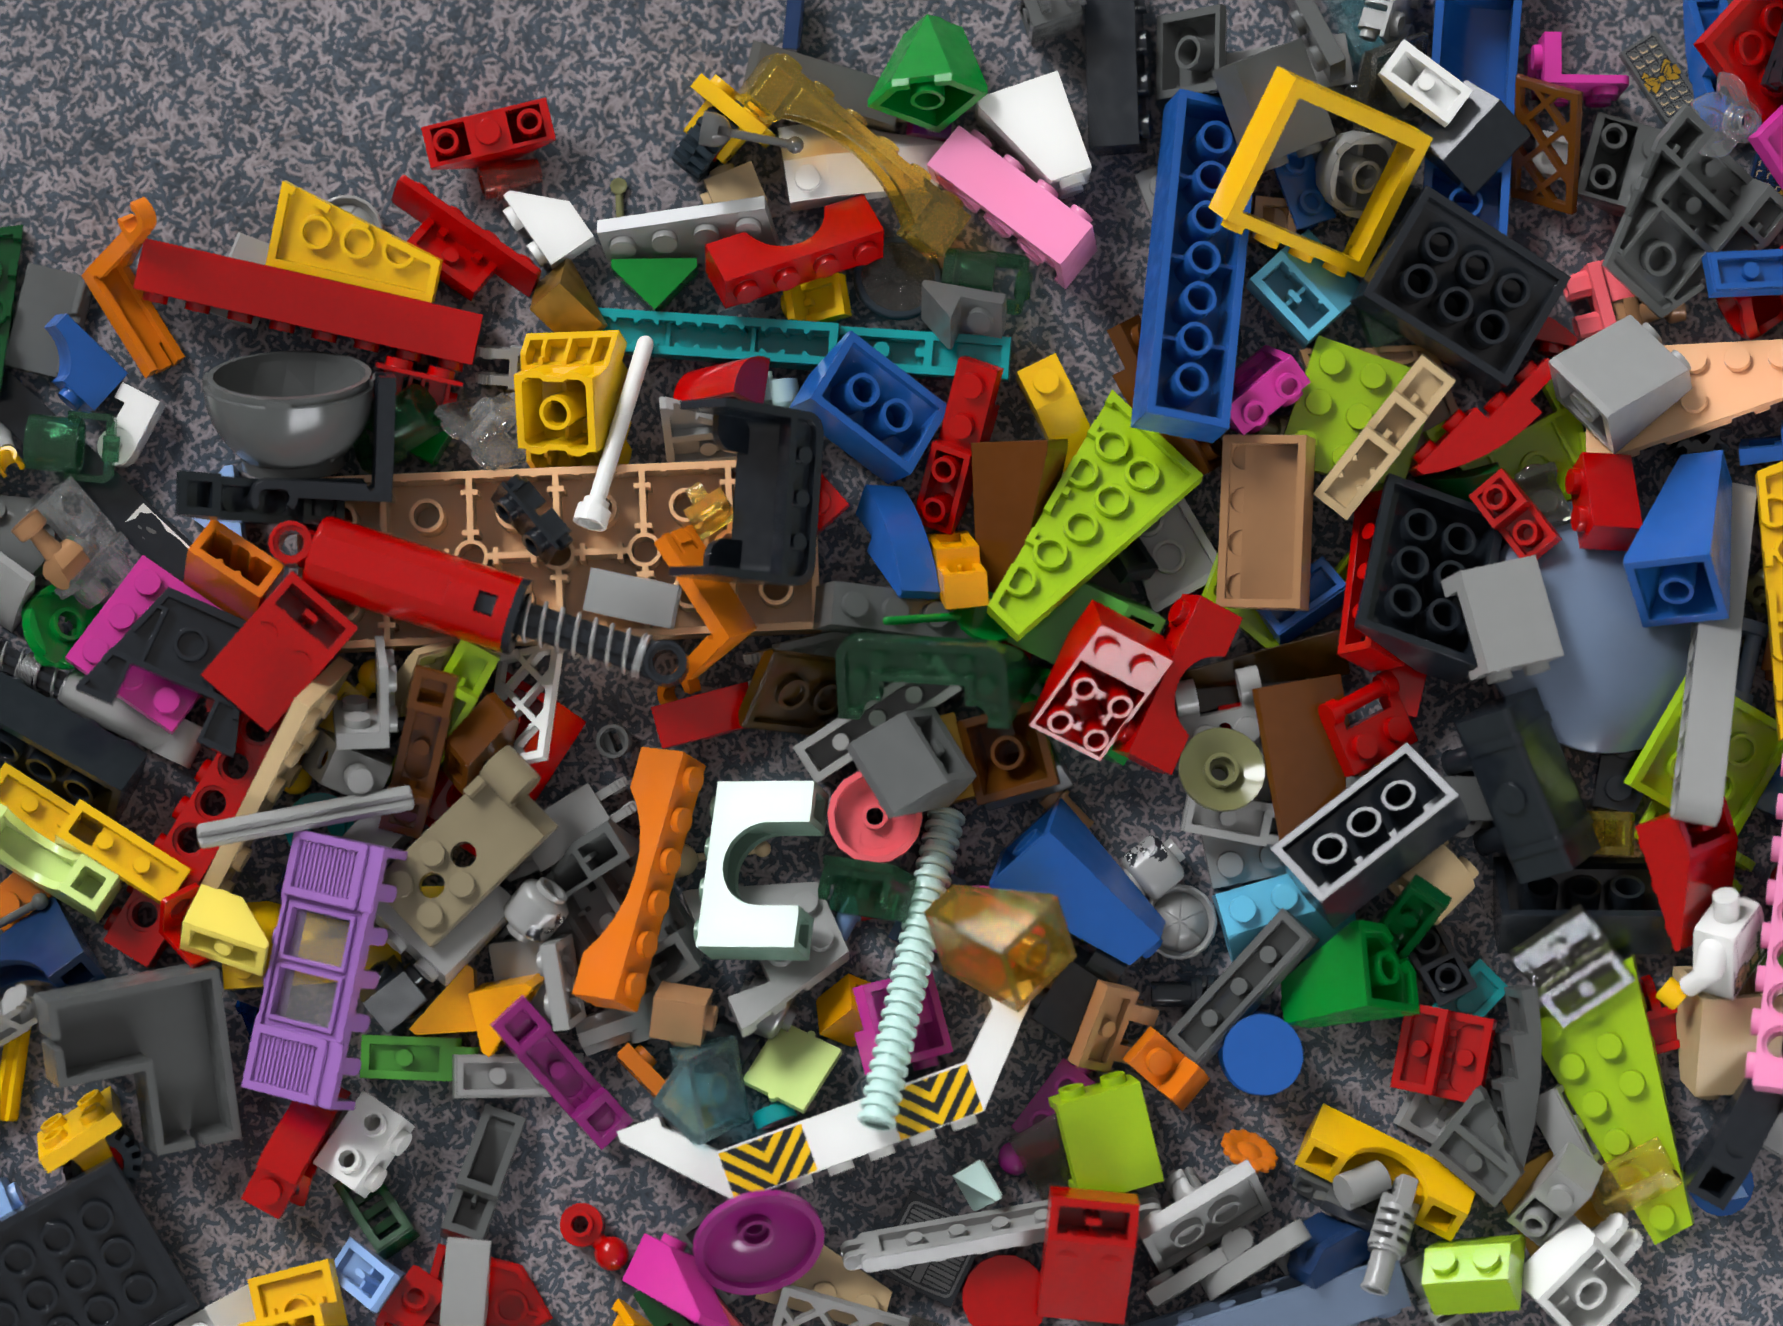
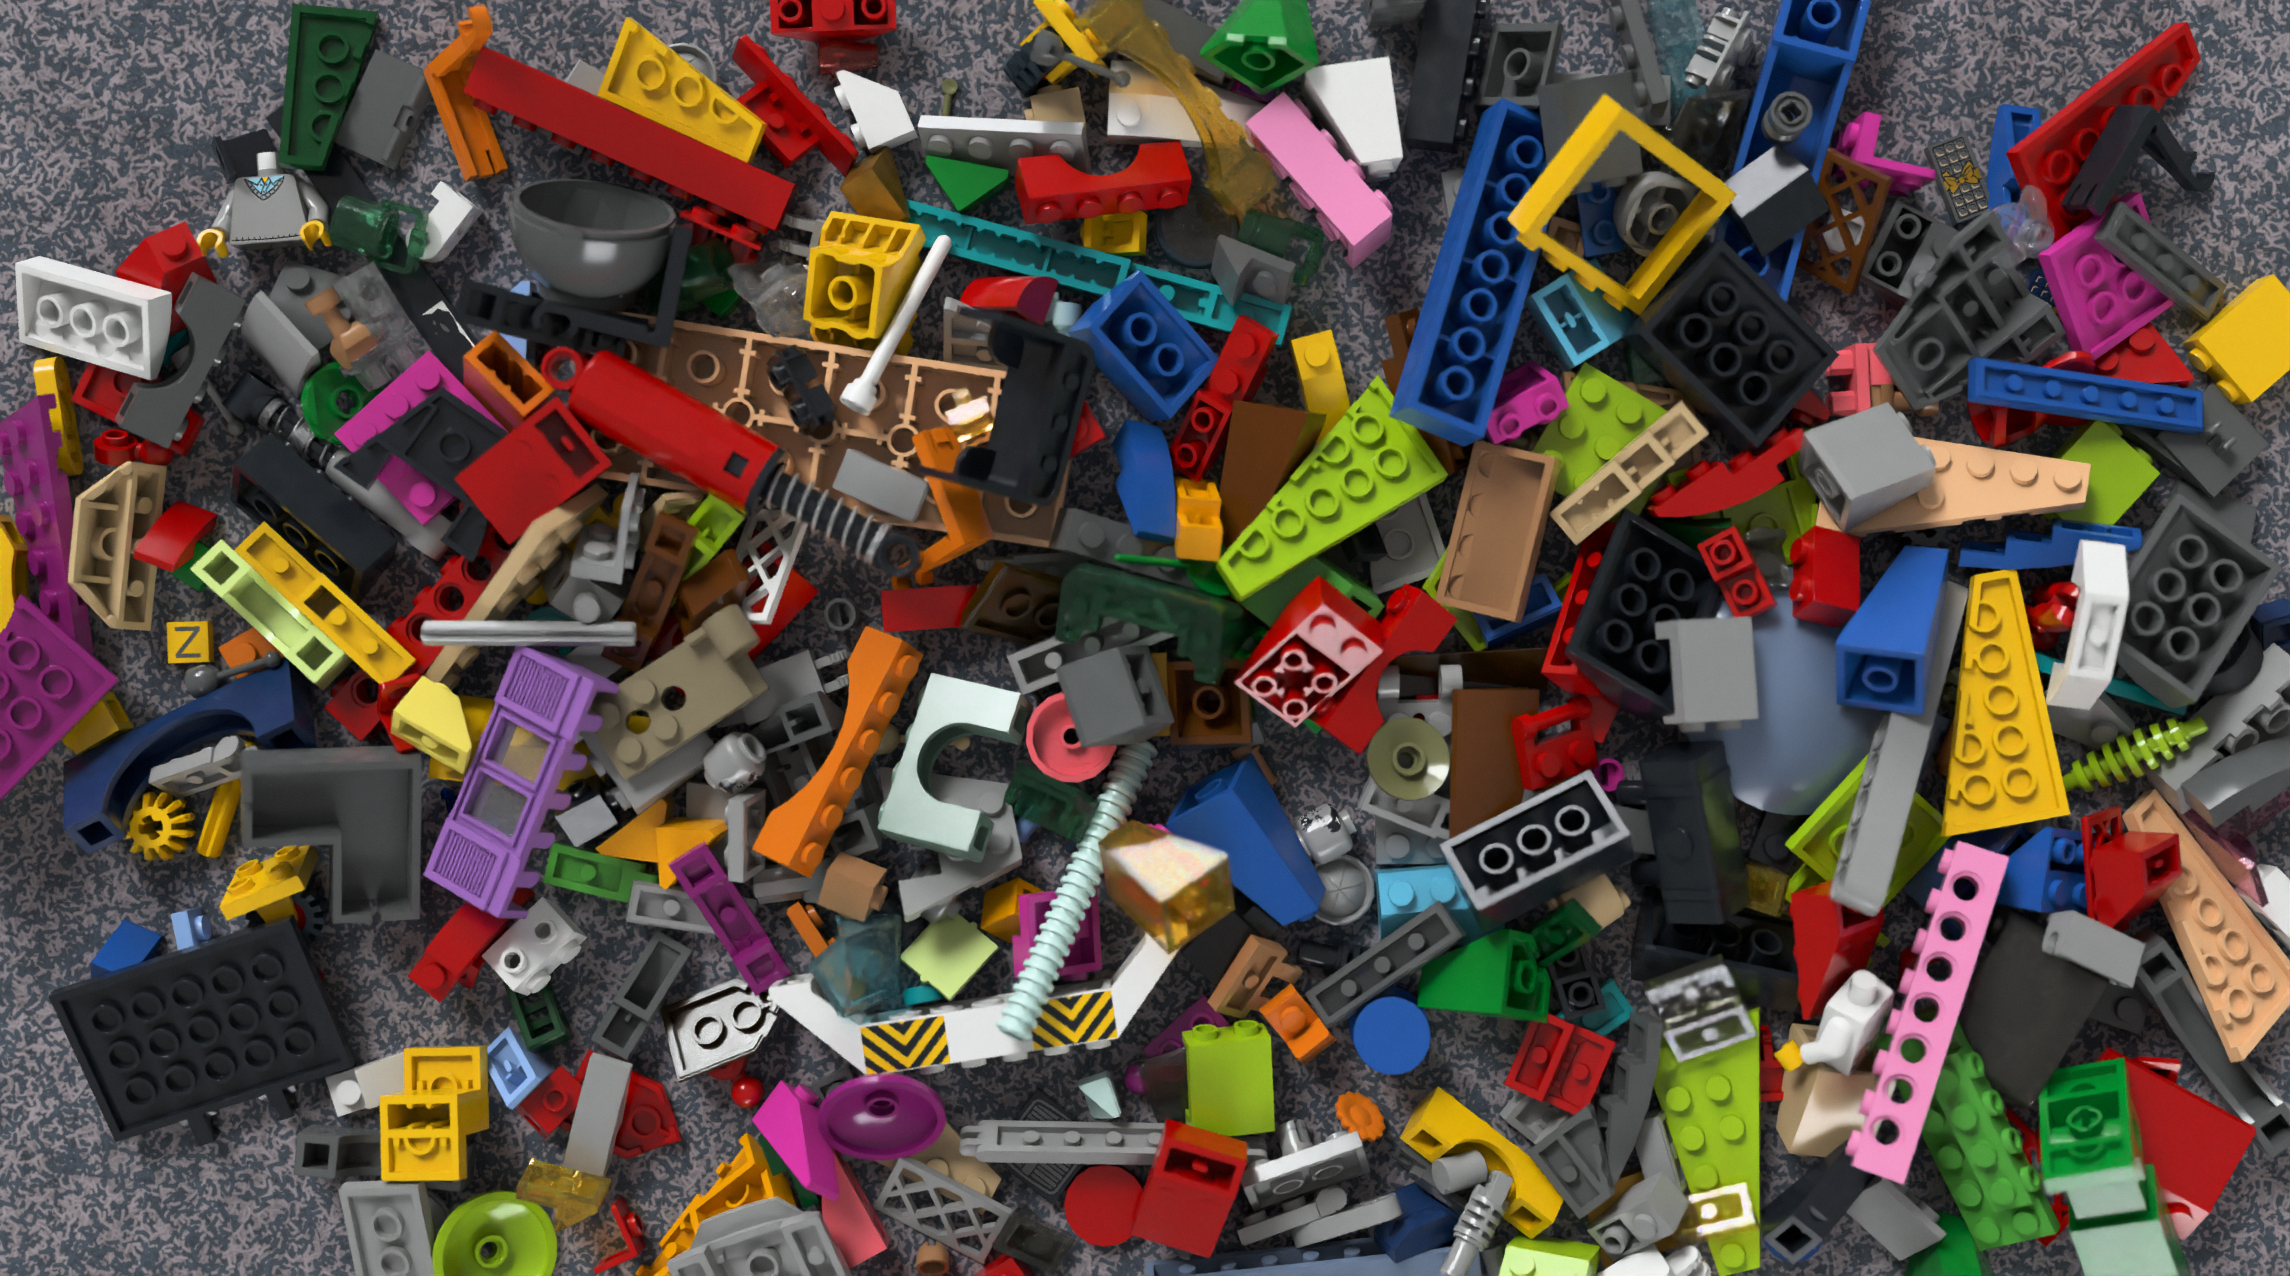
camera: 10 degrees right, 5 degrees up
(85, 368) = (408, 162): blue arch -> none
(569, 1190) = (717, 1027): none -> tile
(1424, 83) = (1739, 139): white slope -> none
(1434, 746) = (1611, 773): none -> dark pink hinge
(1466, 62) = (1782, 127): none -> dark grey wheel

